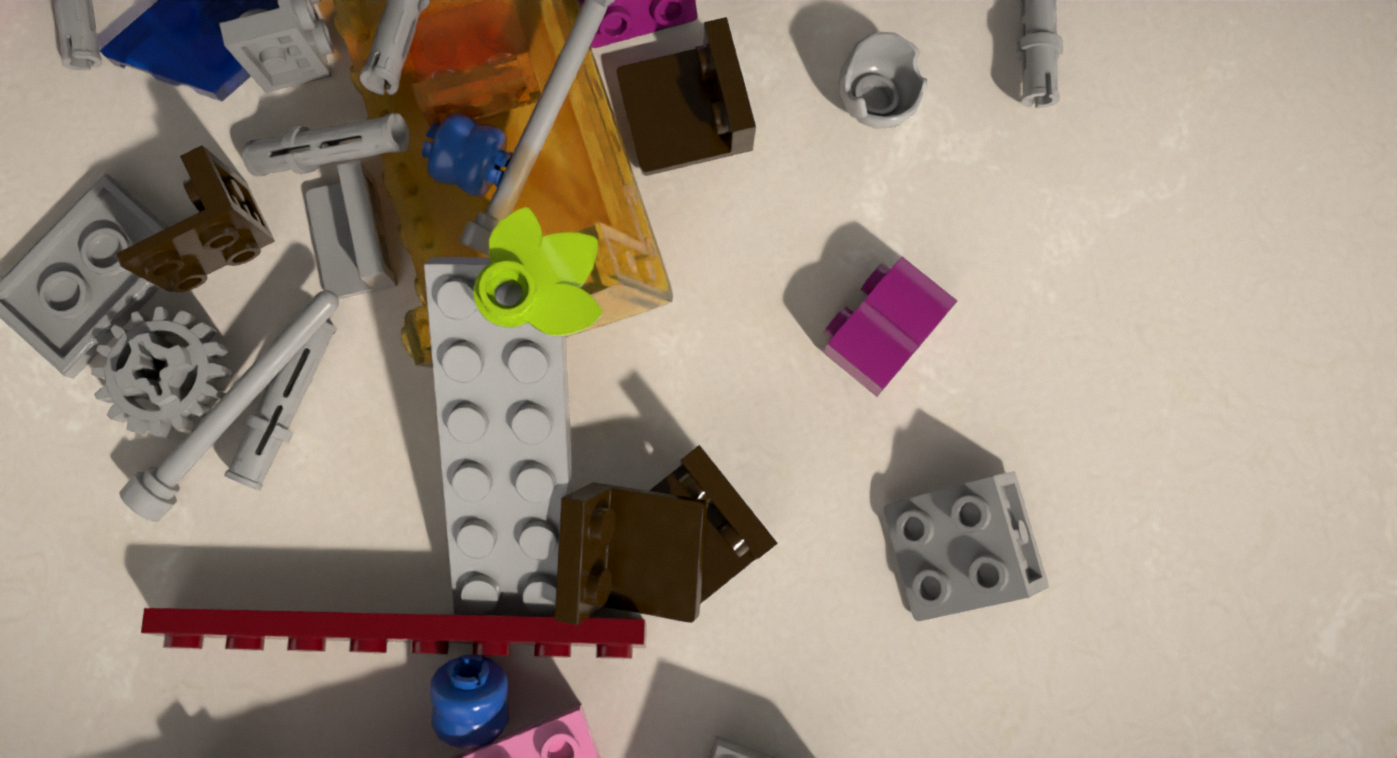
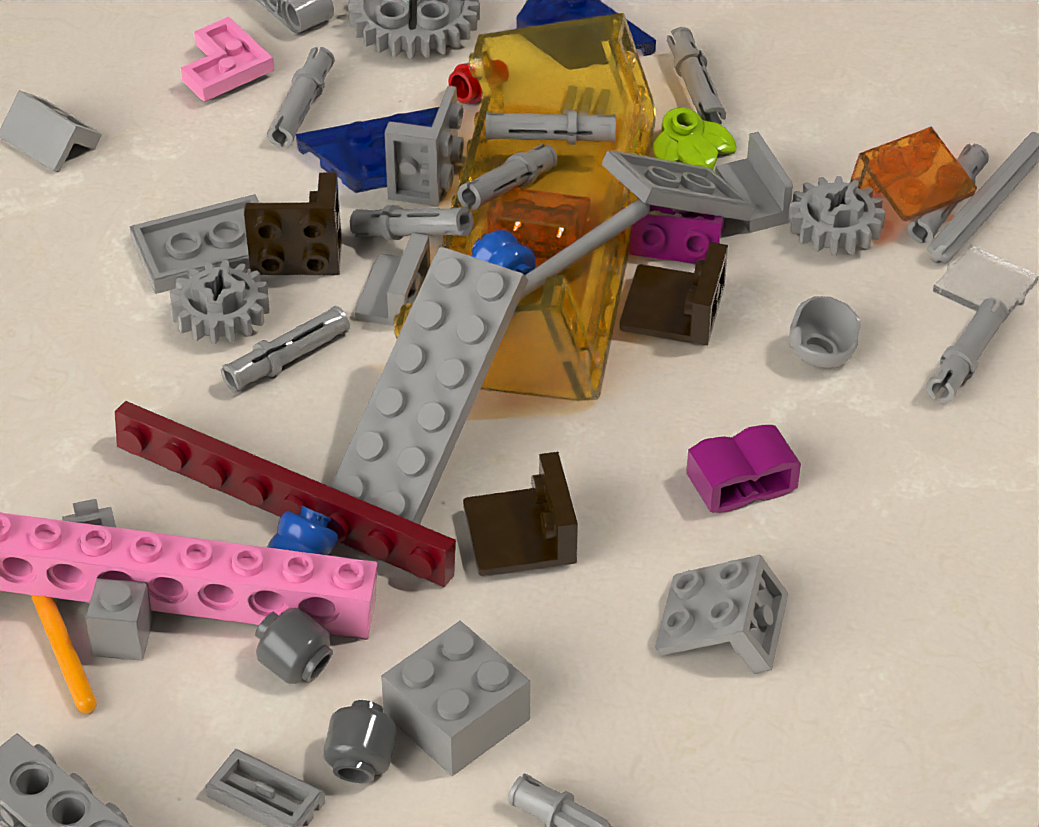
camera: 30 degrees right, 35 degrees down
(154, 491) = (171, 358): light grey piece -> none
(545, 269) = (505, 268): lime plate -> none
(629, 553) = (467, 497): dark brown bracket -> none

